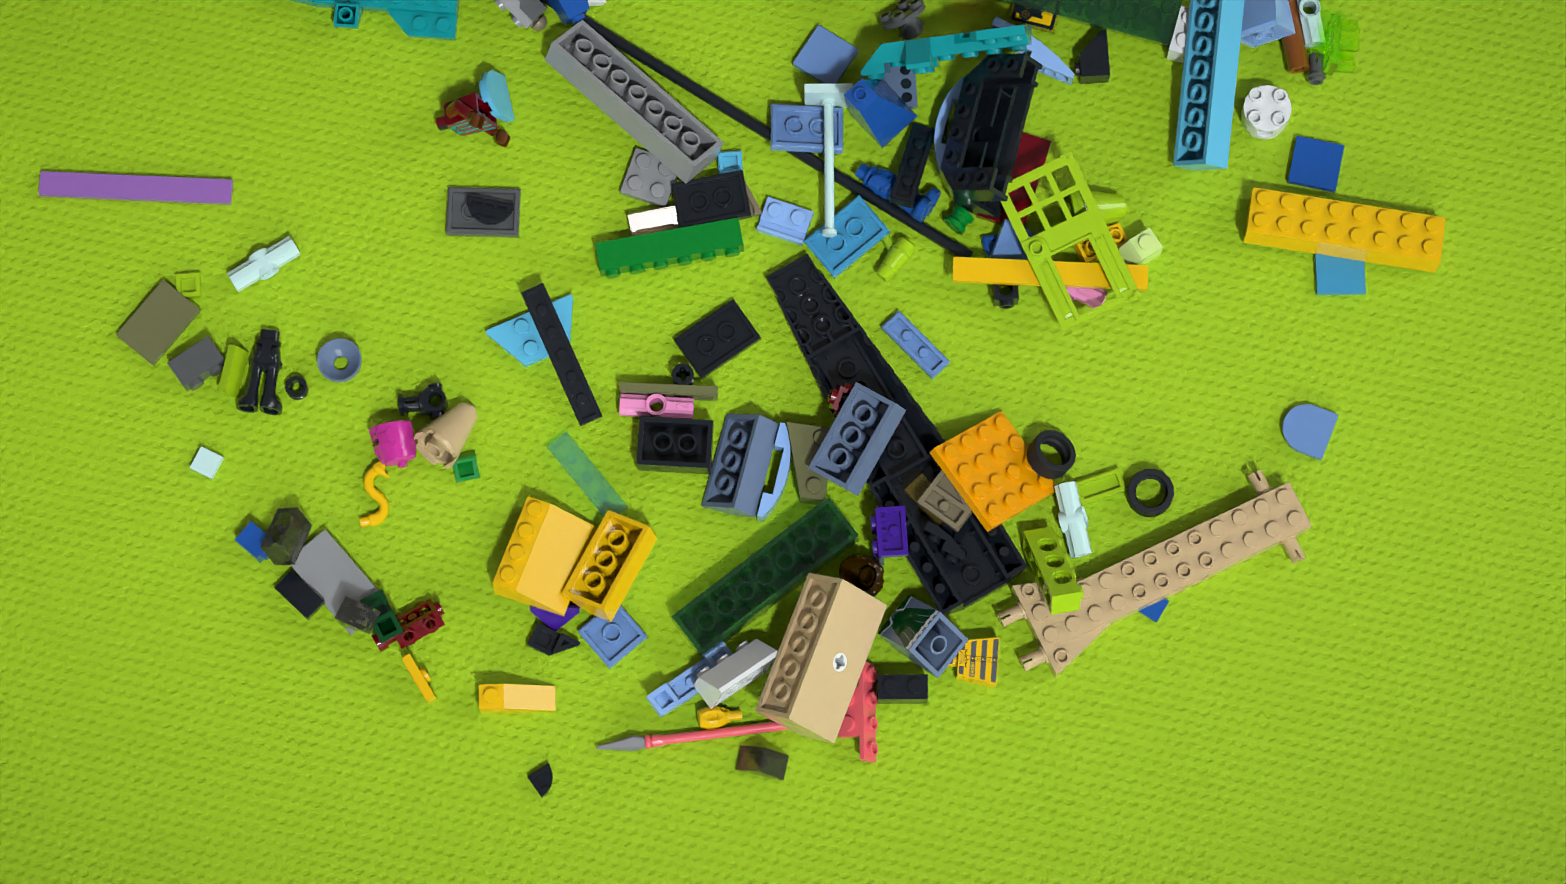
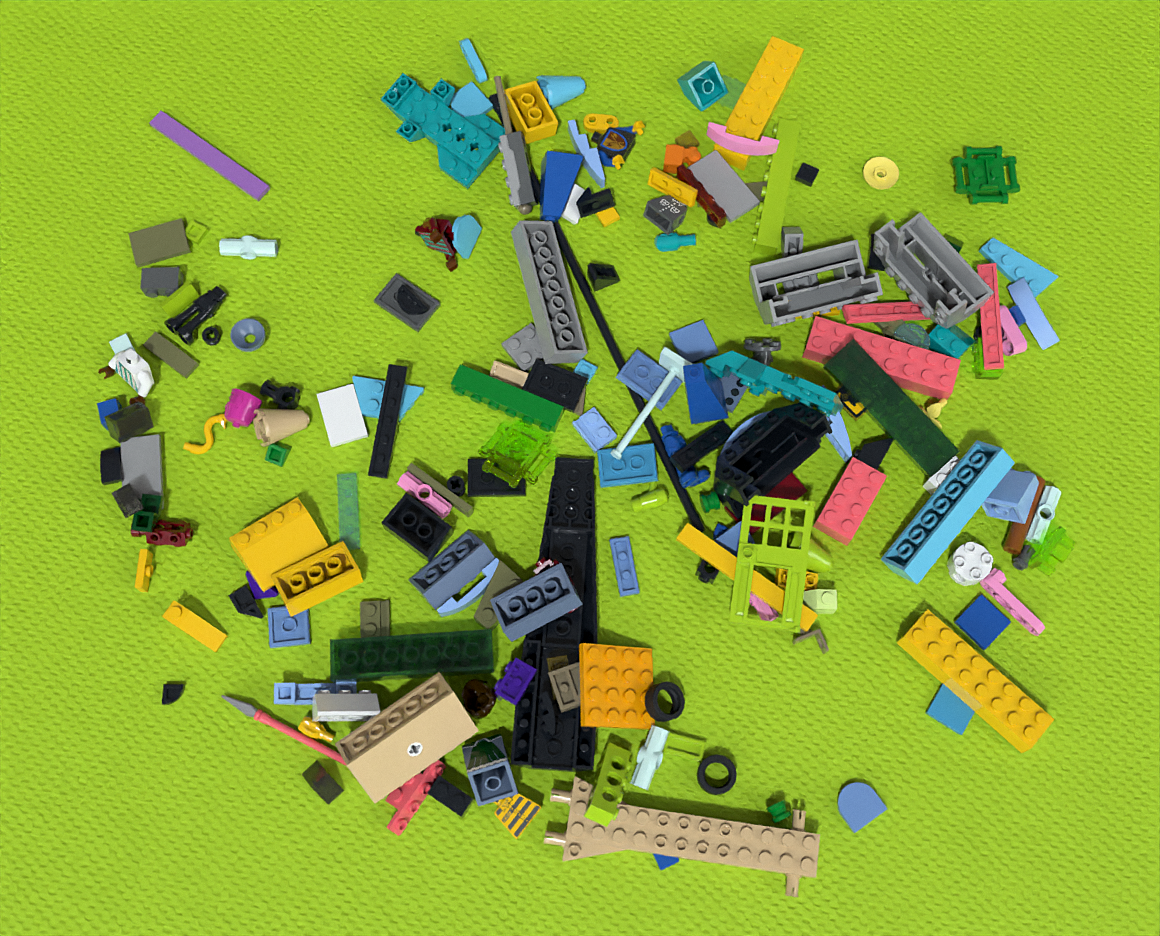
camera: 30 degrees right, 5 degrees down
(244, 479) = (133, 371): none -> white torso
(268, 437) = (170, 355): none -> olive tile
(504, 380) = (342, 415): none -> white tile
(676, 45) = (601, 276): none -> black slope
(696, 568) = (375, 618): none -> olive plate
(723, 299) = (515, 451): none -> clear neon green brick
(1103, 124) = (850, 501): none -> coral brick
(1163, 288) = (809, 634): none -> dark tan bracket
(1234, 487) = (779, 811): none -> green wheel
(1303, 118) = (993, 585): none -> bright pink beam

